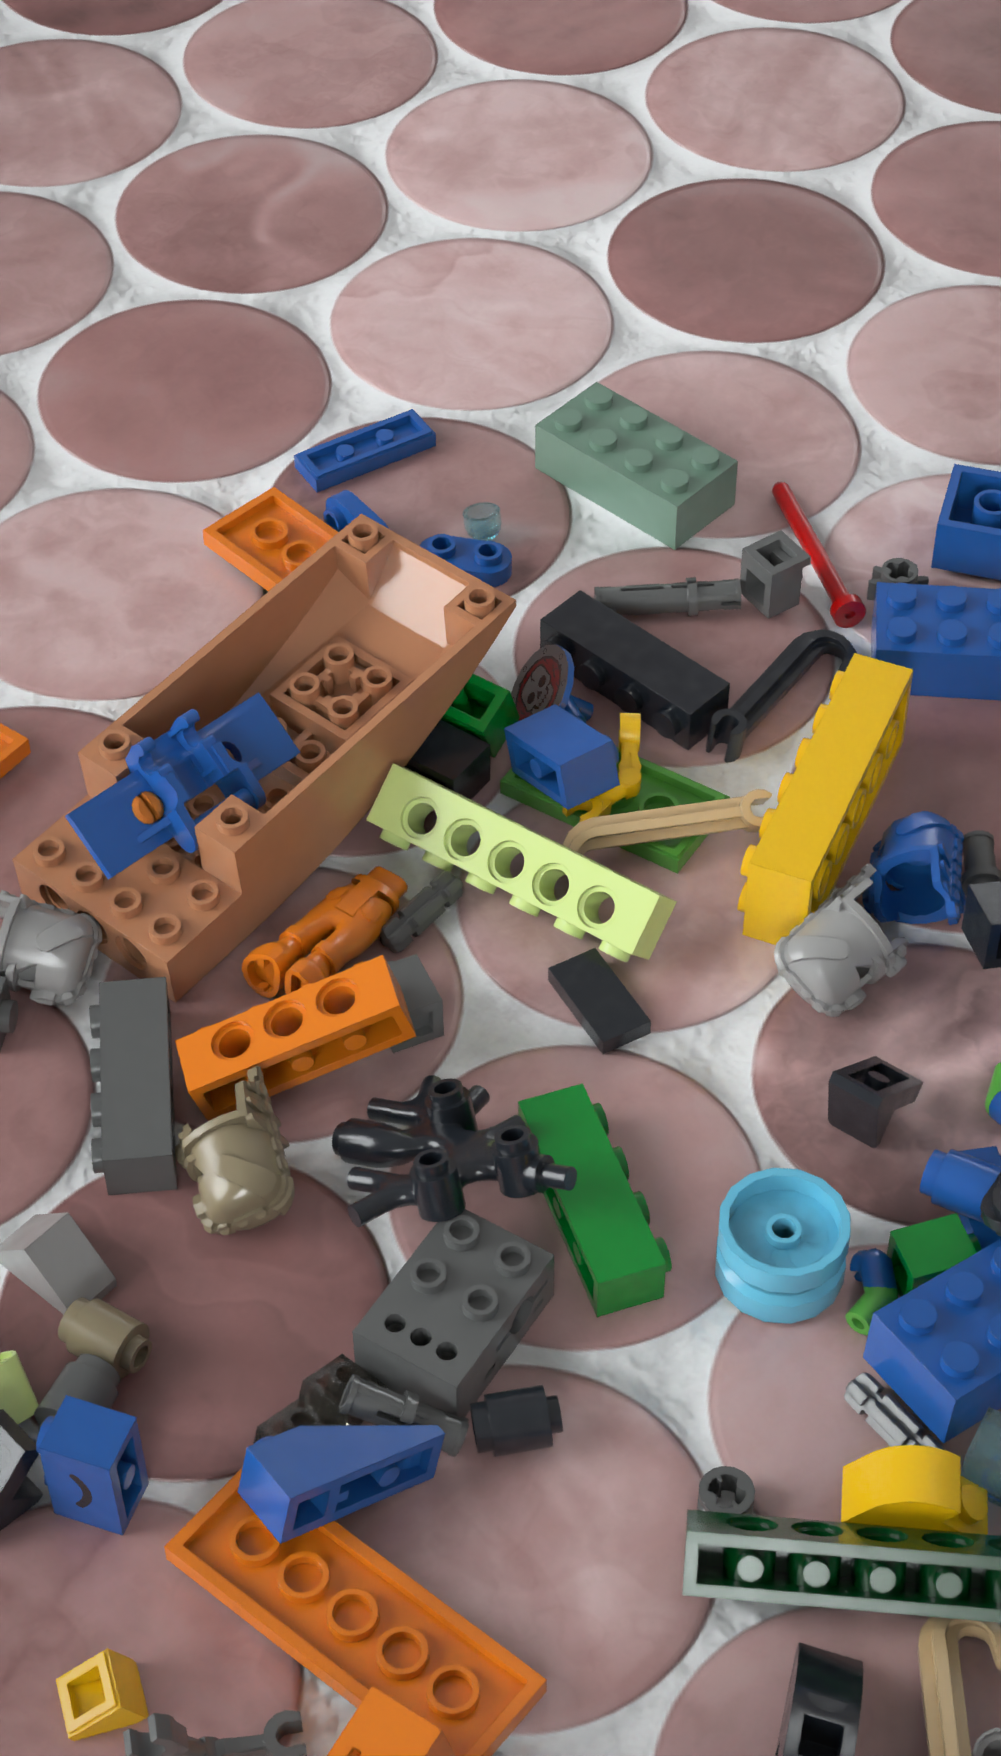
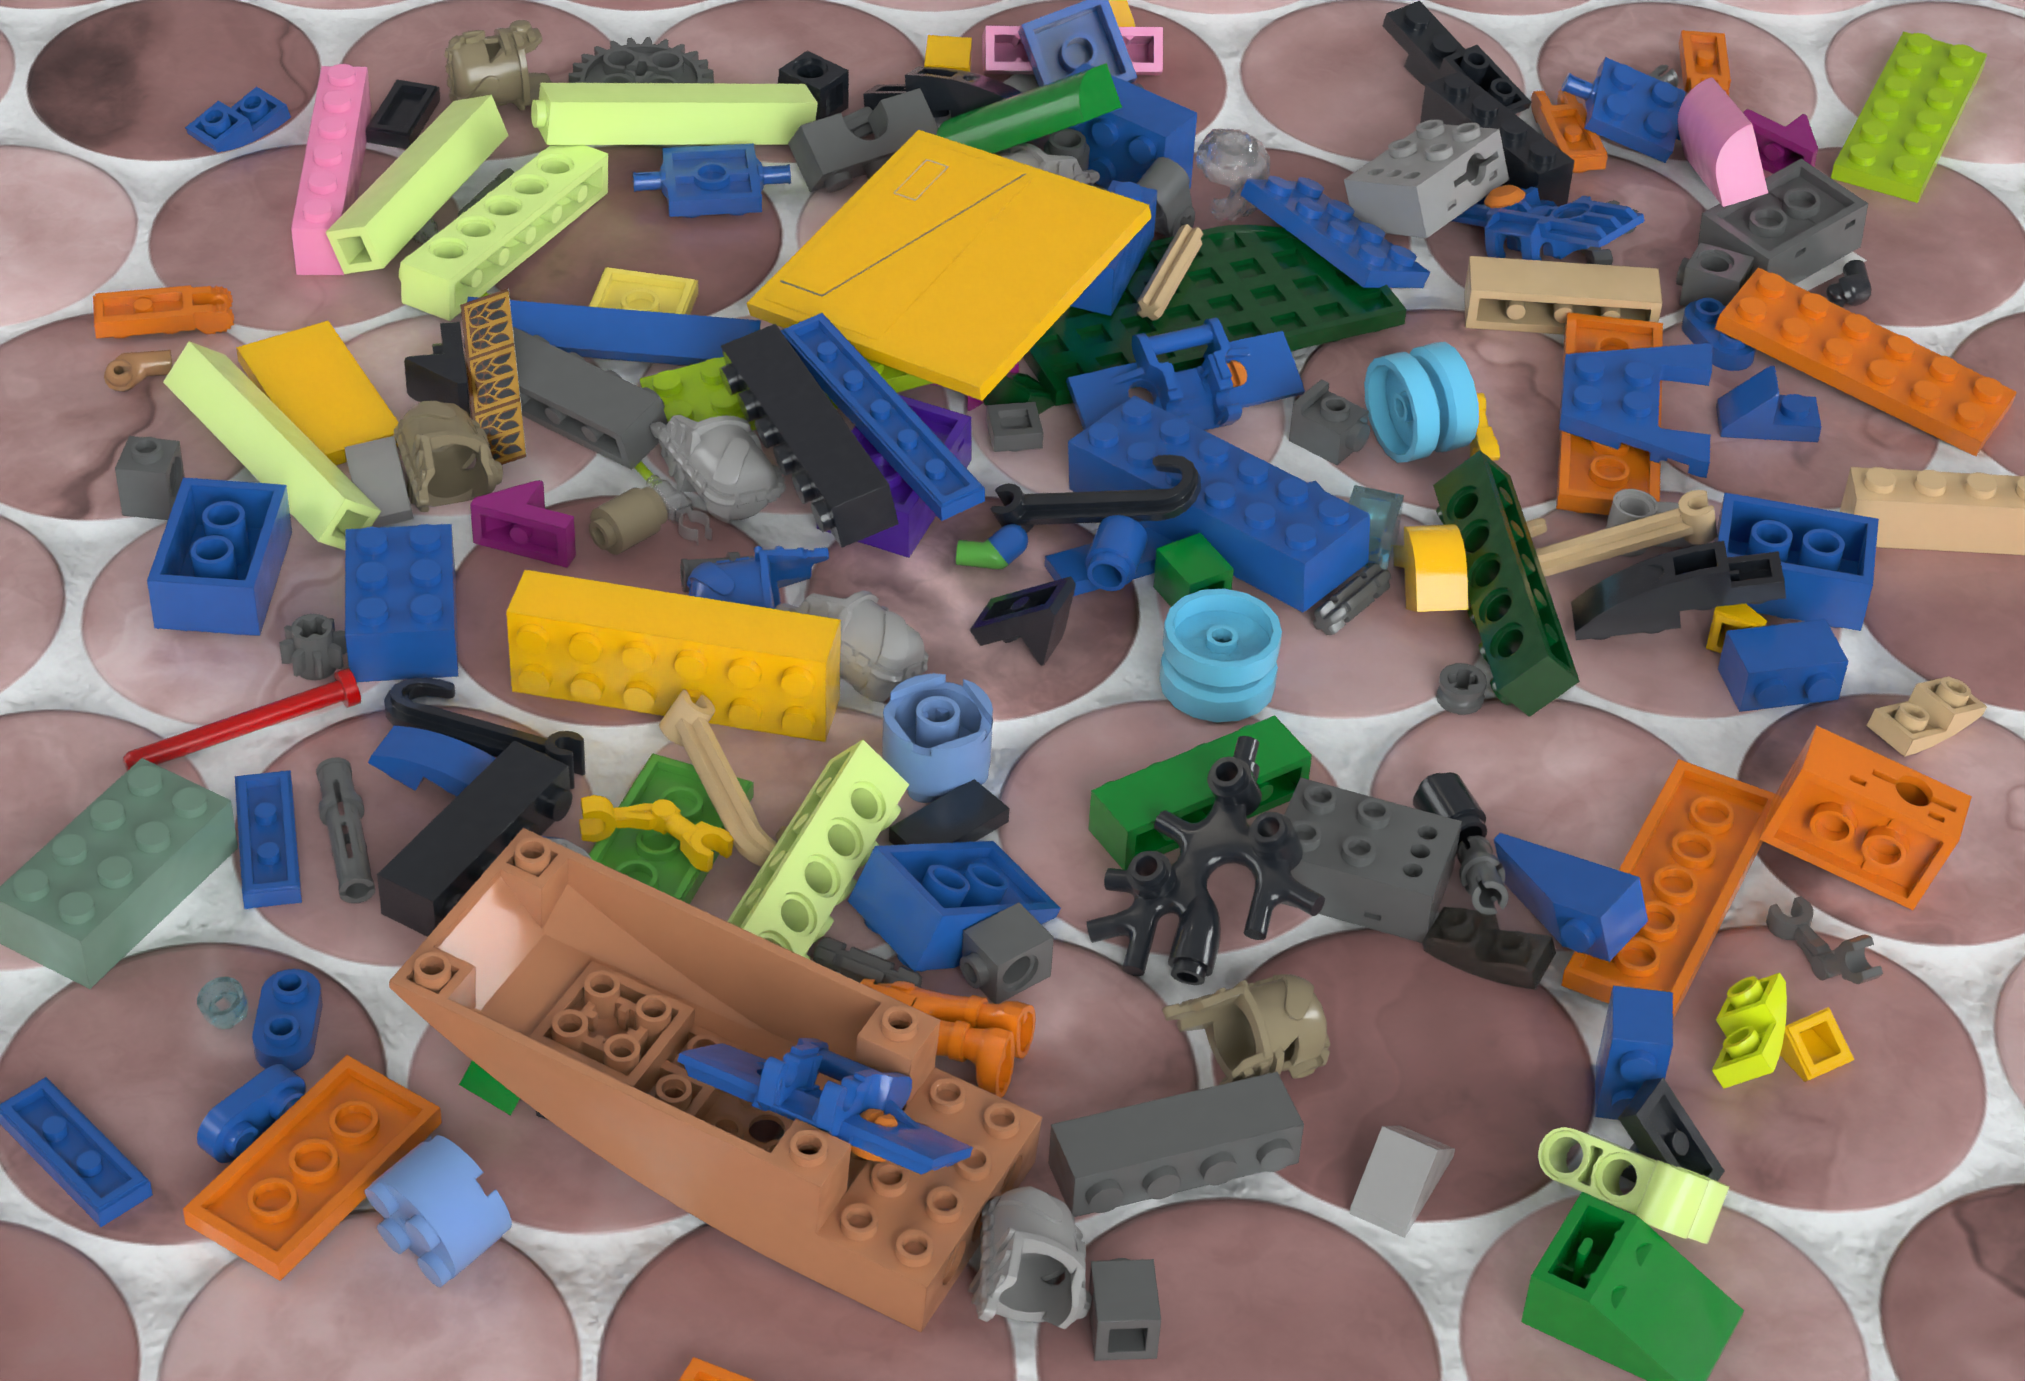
camera: 105 degrees left, 5 degrees down
(85, 1379) = (1554, 1104): dark grey brick -> none
(107, 1333) = (1479, 1104): dark tan brick -> none
(140, 1629) = (1754, 1029): none -> neon yellow slope
(205, 594) = (438, 1209): none -> medium blue brick
(297, 1035) = (1078, 924): orange brick -> none
(486, 975) = (934, 891): none -> blue slope
(562, 756) = (666, 840): blue brick -> none
(671, 559) = (267, 839): none -> blue tile
(696, 986) = (937, 735): none -> medium blue brick
(740, 648) = (419, 754): none -> blue slope
(773, 573) = (320, 726): dark grey brick -> none

